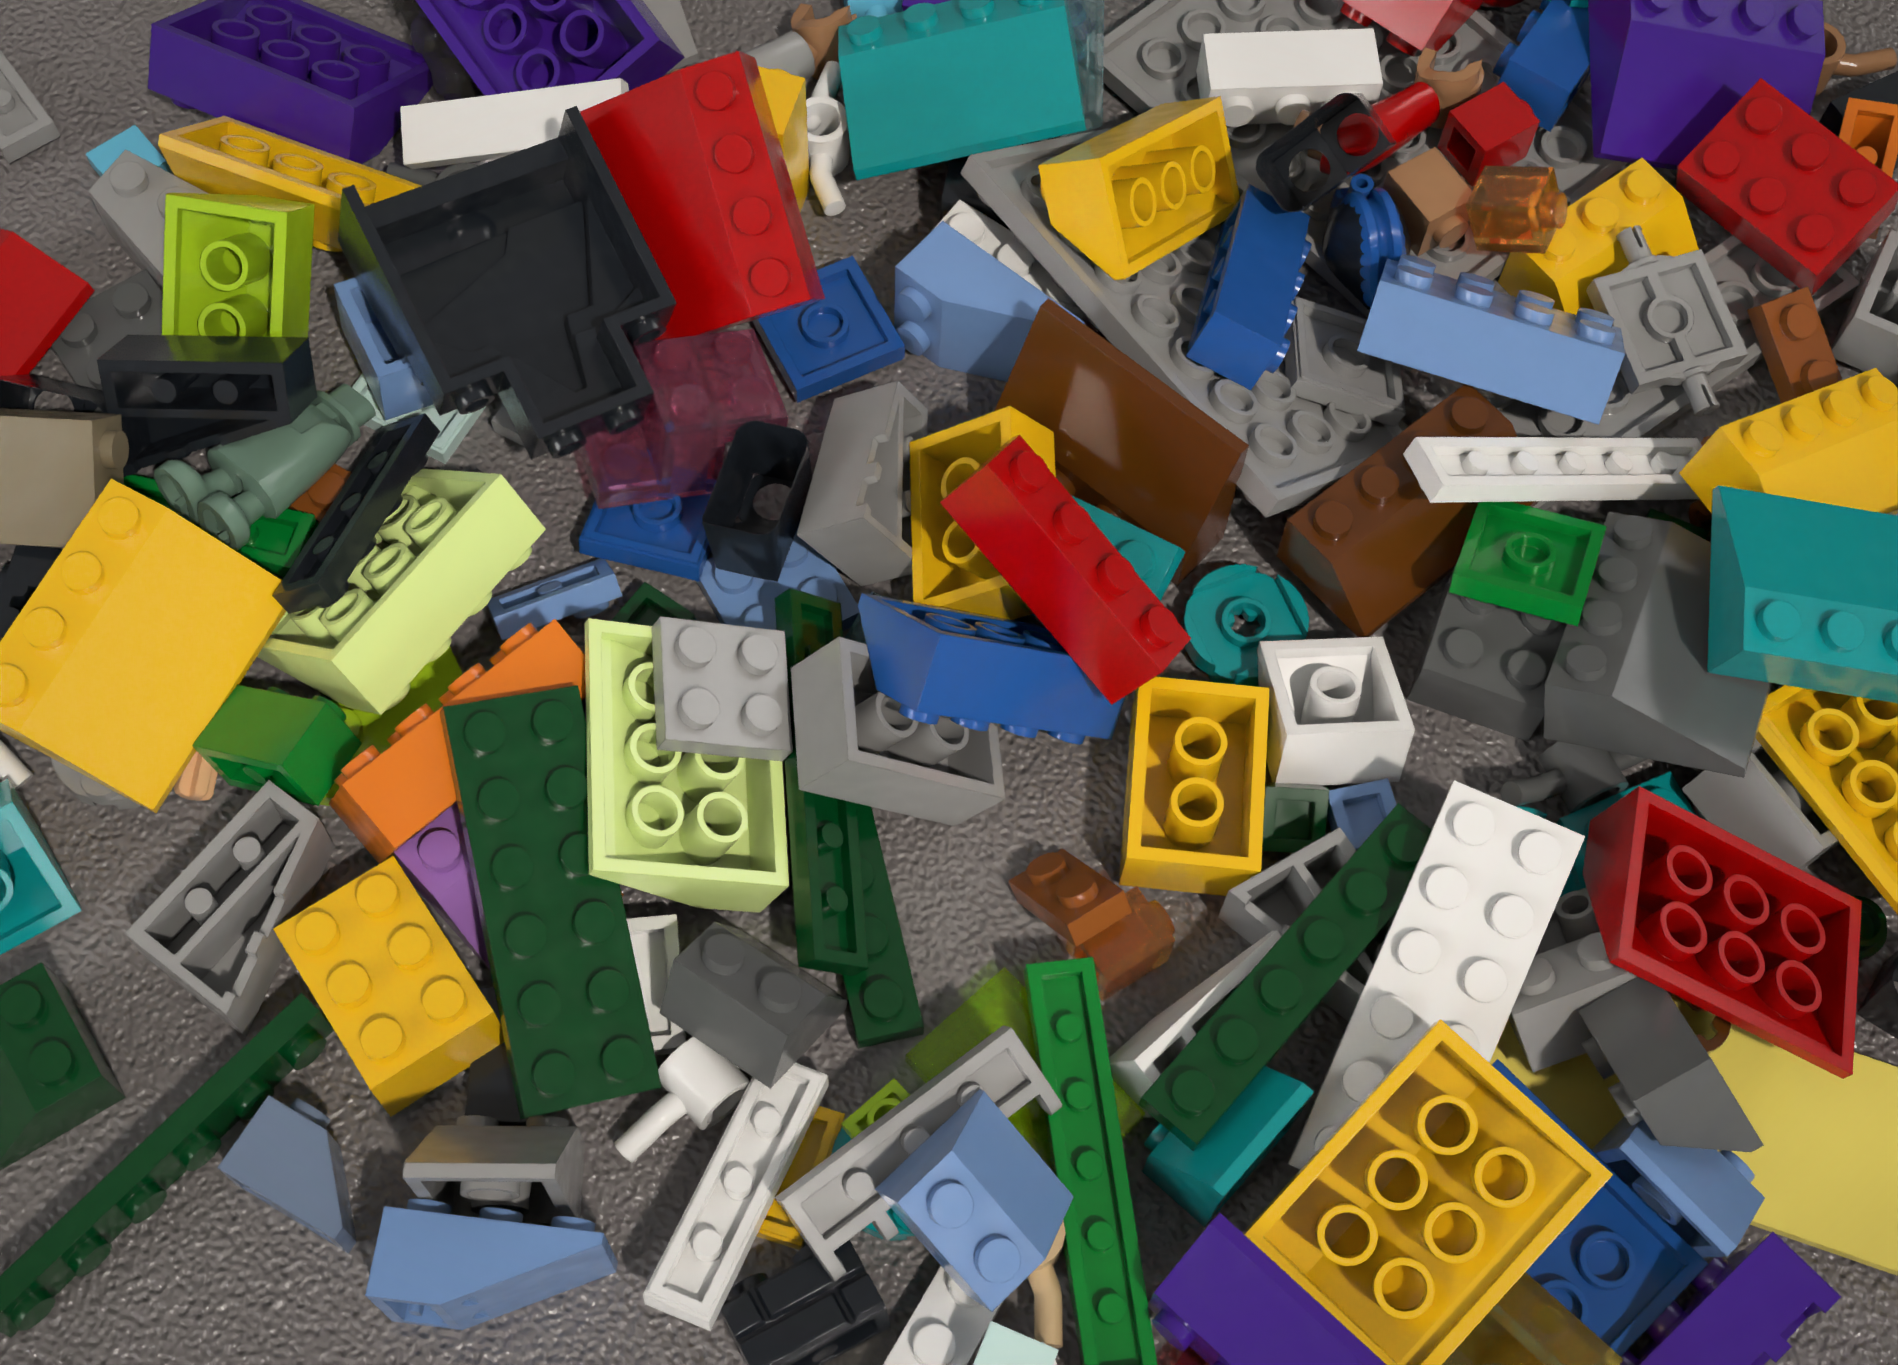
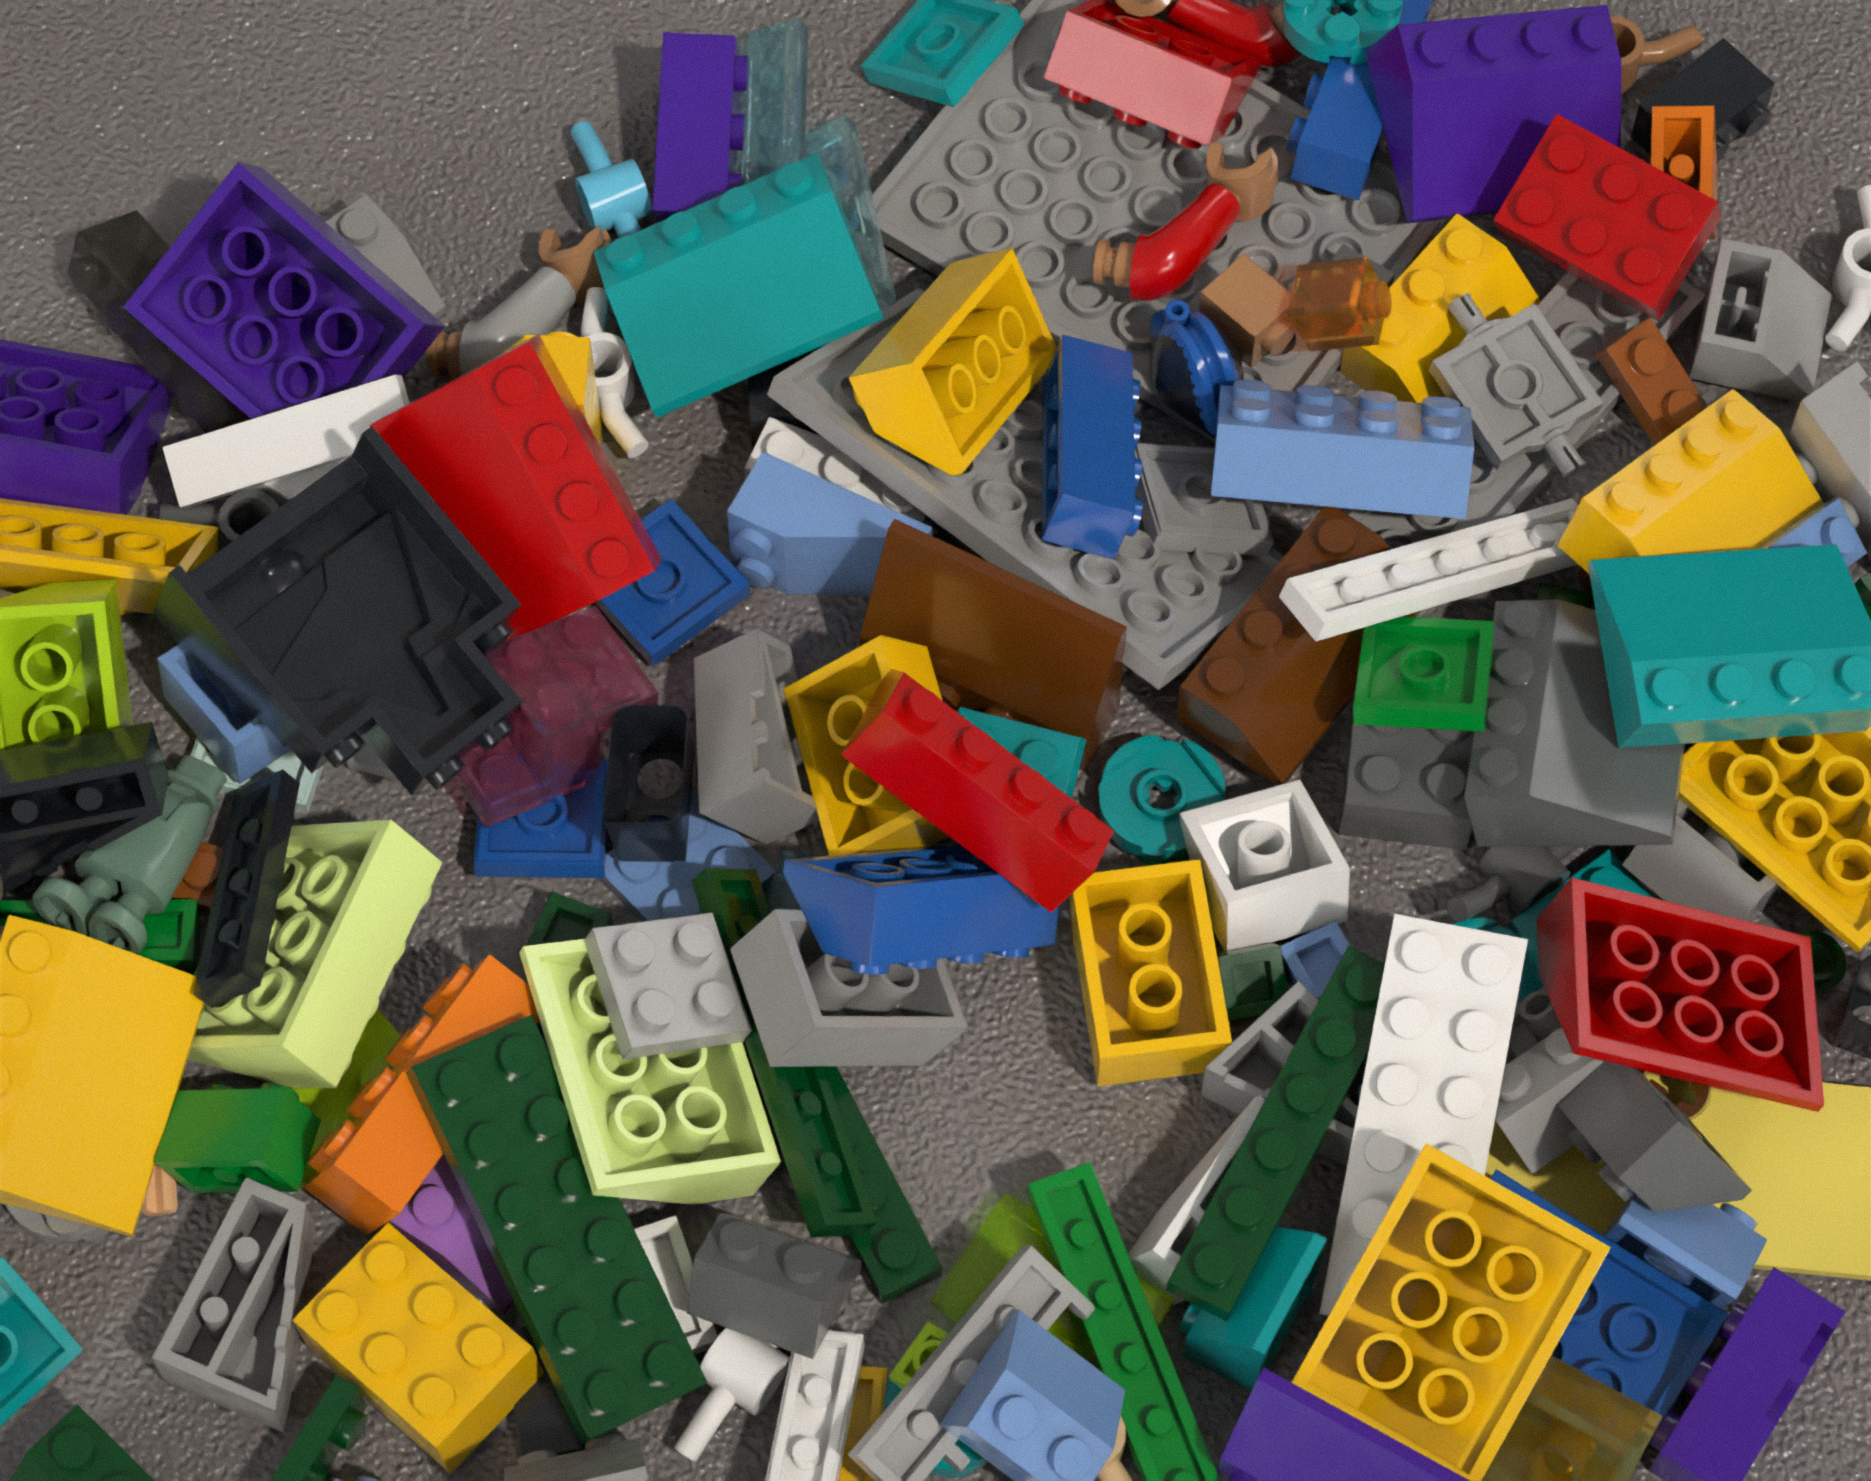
camera: 10 degrees left, 0 degrees up
(575, 592) = (478, 920): medium blue plate -> none
(1069, 896) = (1052, 1108): dark orange plate -> none
(1129, 946) = (1117, 1139): clear orange brick -> none
(1275, 160) = (1085, 315): black piece -> none
(1283, 72) = (1077, 202): white brick -> none
(1488, 132) = (1295, 220): red brick -> none

